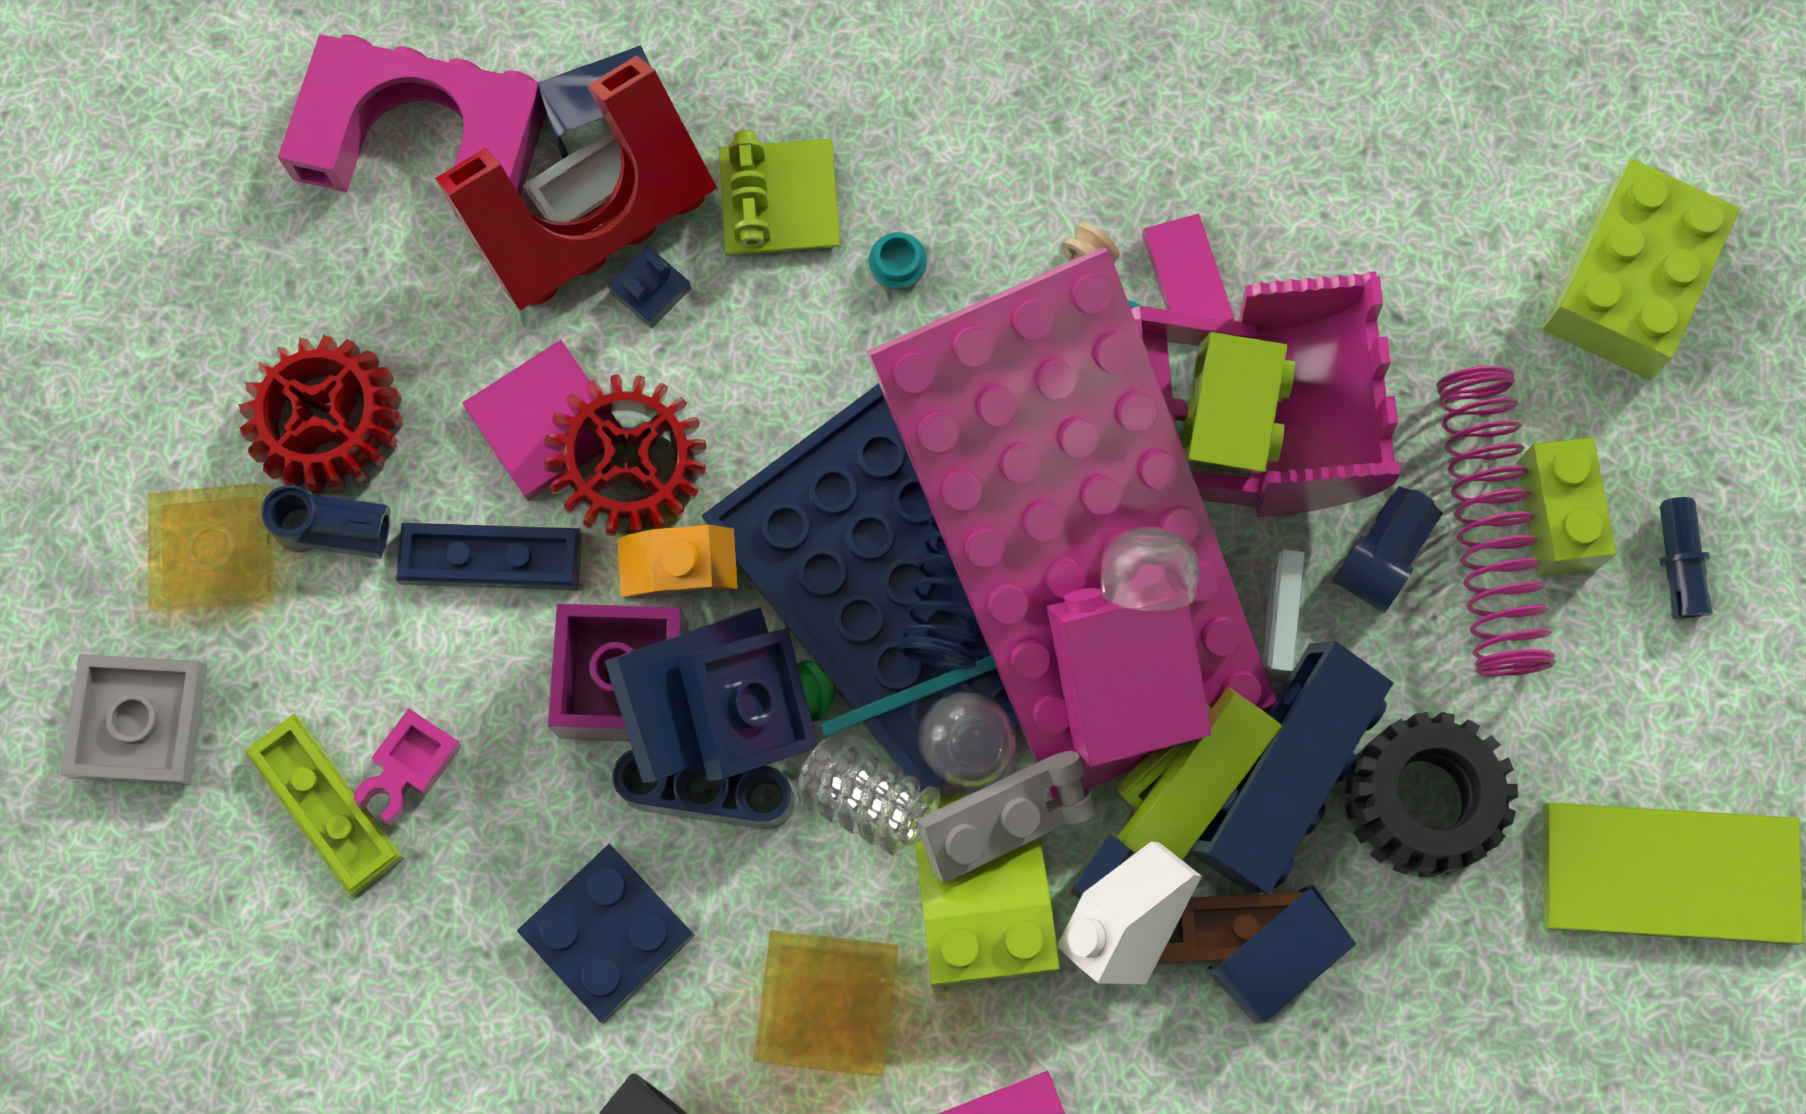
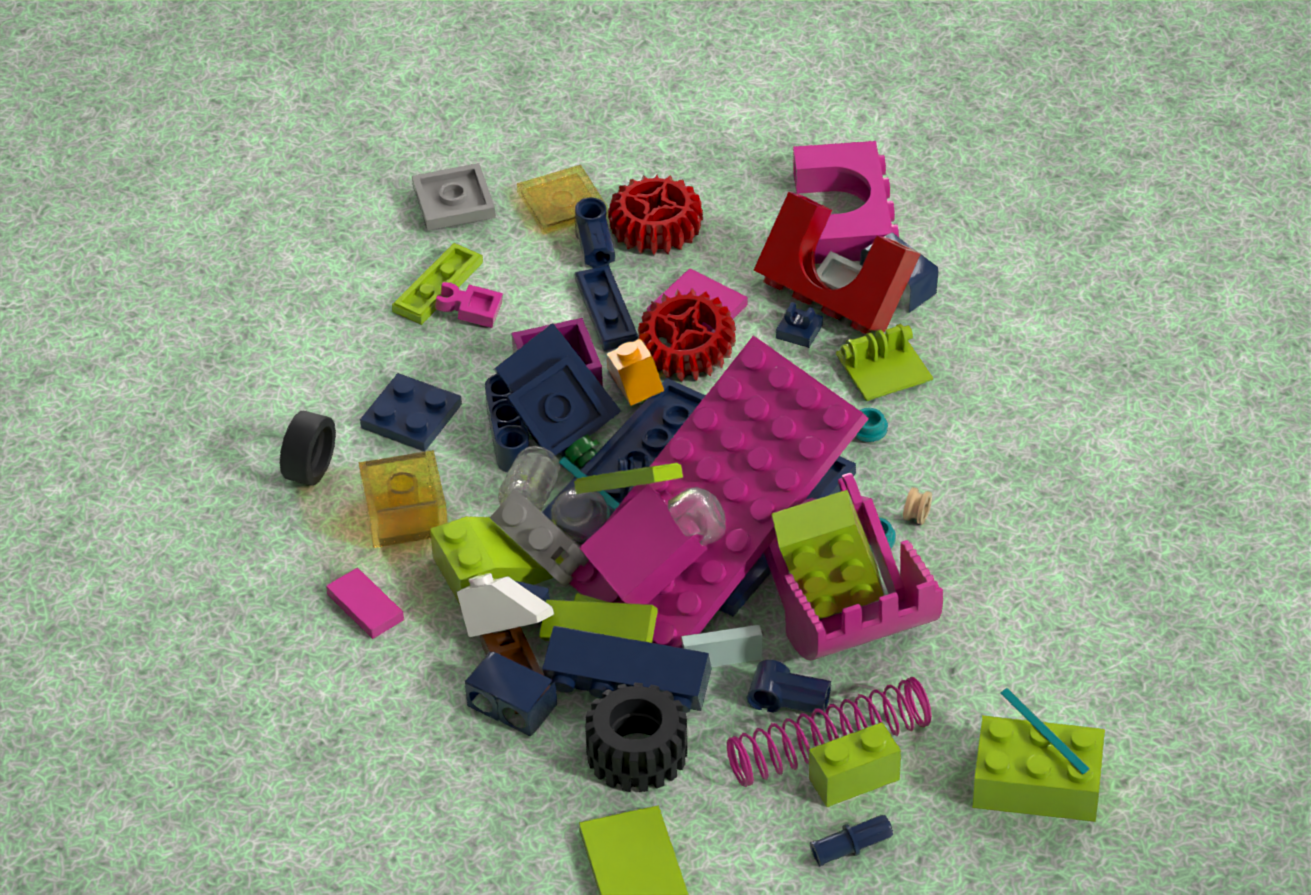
camera: 70 degrees right, 30 degrees down
(1012, 648) = (628, 478): none -> lime tile
(1186, 268) = (939, 552): dark pink tile -> none
(1627, 235) = (1045, 731): none -> teal piece

